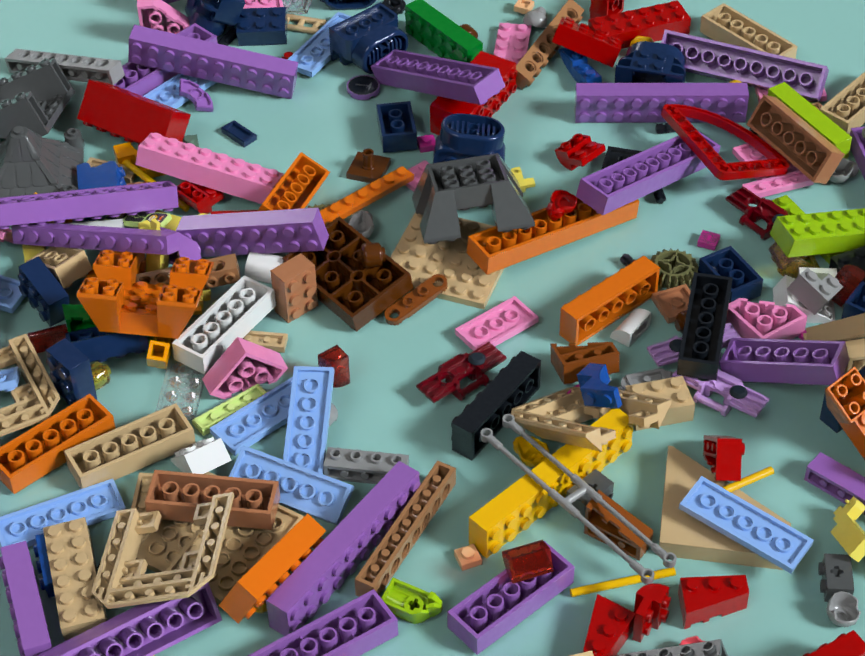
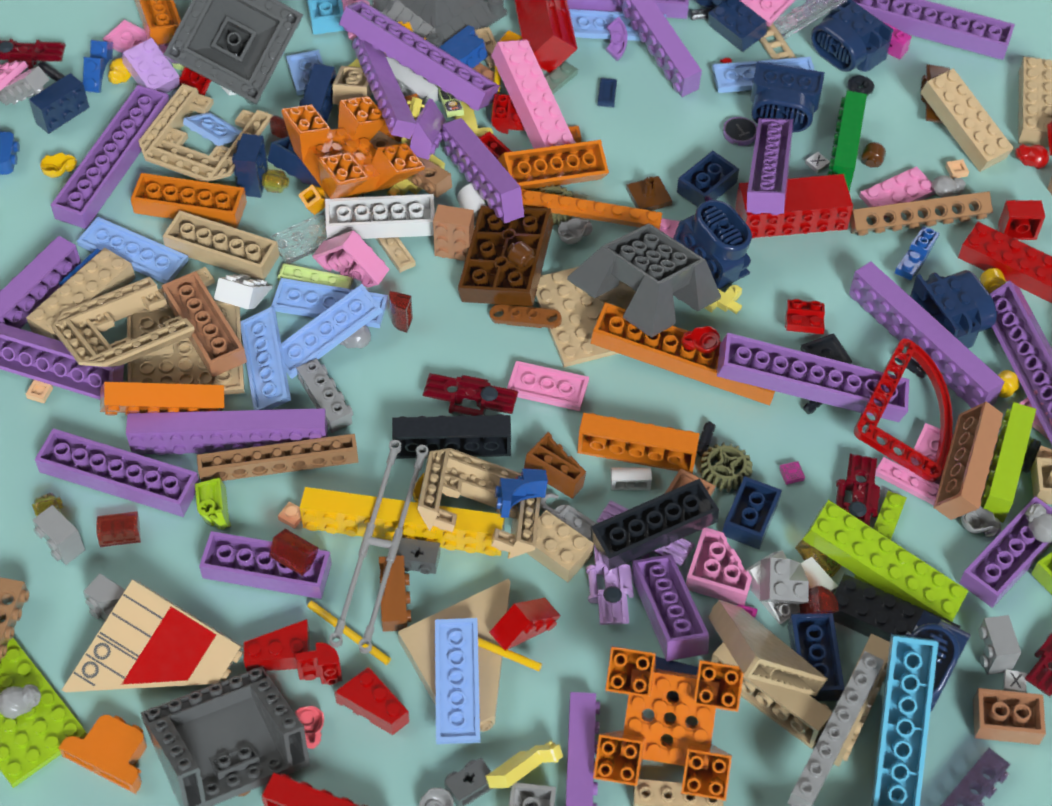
camera: 50 degrees right, 10 degrees up
(587, 41) = (941, 237): red brick -> none

